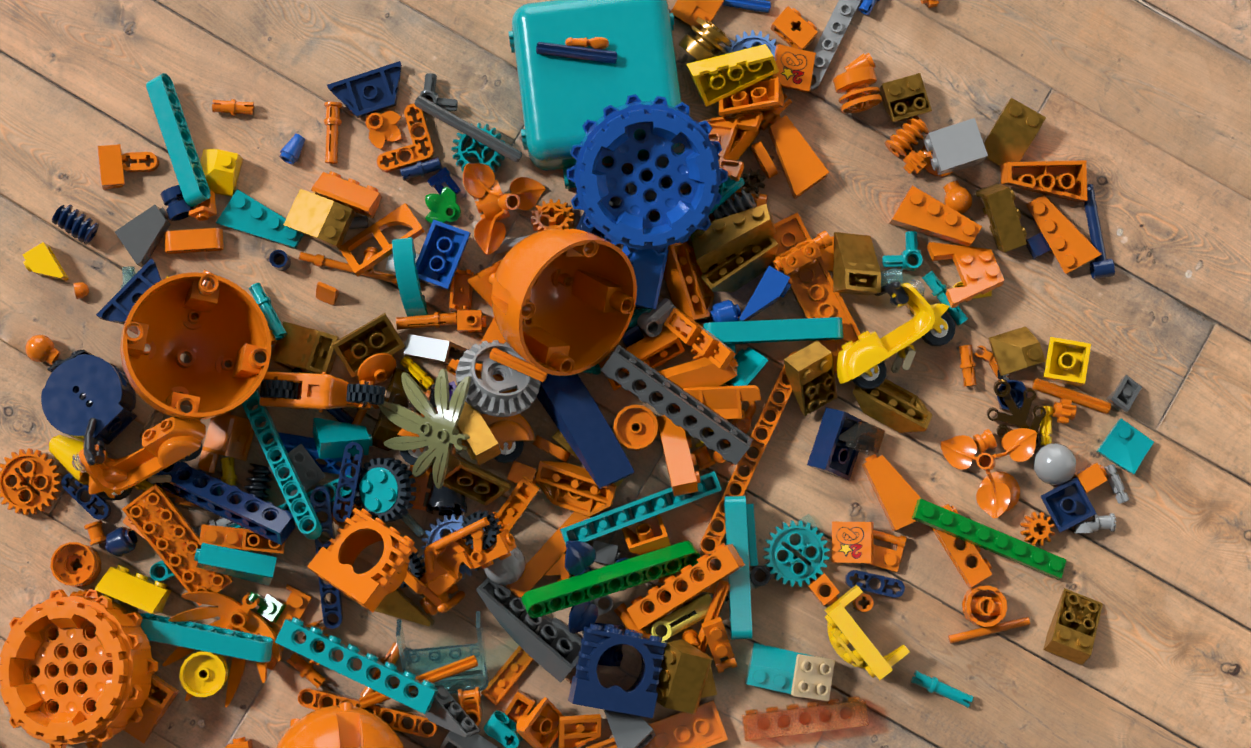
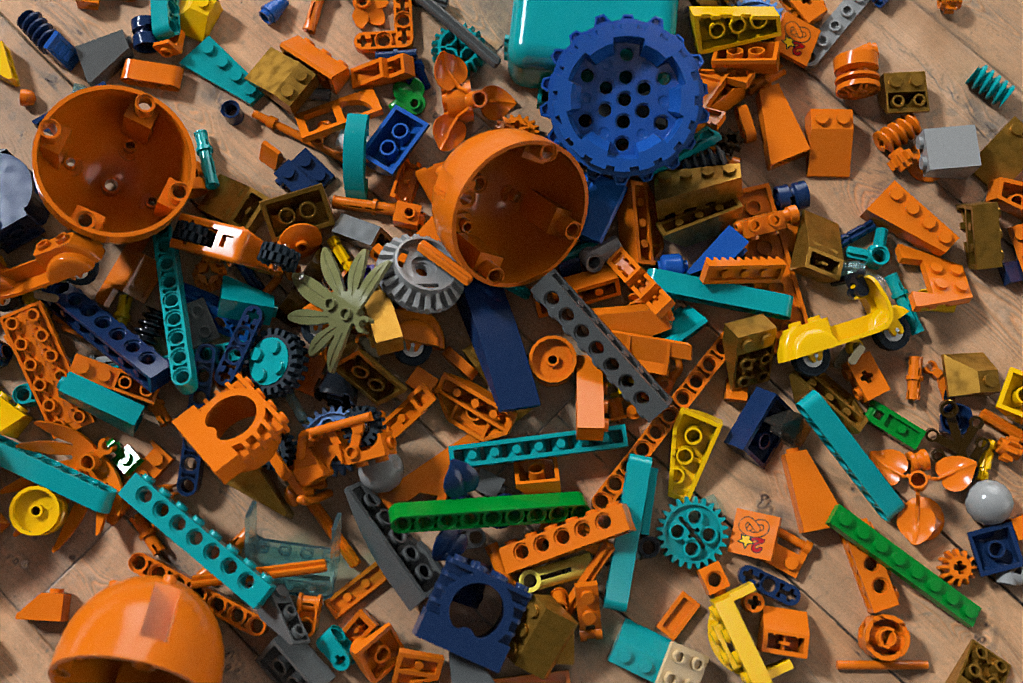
camera: 15 degrees right, 5 degrees down
(103, 238) = (62, 51): none -> blue slope
(287, 557) = (160, 411): none -> orange pin
(293, 427) = (214, 282): none -> orange gear
(362, 304) = (302, 172): none -> dark blue plate
(412, 188) = (383, 71): none -> orange slope
(470, 626) = (327, 524): none -> orange axle
(778, 473) = (691, 446): none -> yellow wedge
(790, 305) = (742, 271): none -> orange gear
(799, 629) = (677, 615): none -> orange tile
(810, 419) = (738, 395): none -> orange slope
(823, 220) = (796, 194): none -> dark blue wheel
(845, 160) = (830, 142): none -> orange slope
(889, 240) = (857, 233): none -> dark blue axle
(895, 622) = (783, 632): none -> orange slope
(922, 451) = (850, 455): none -> teal beam
(932, 381) = (875, 383): none -> orange brick
(957, 197) = (938, 203): orange piece -> none
(958, 413) = (894, 425): none -> green plate
(984, 70) = (990, 85): none -> teal piece

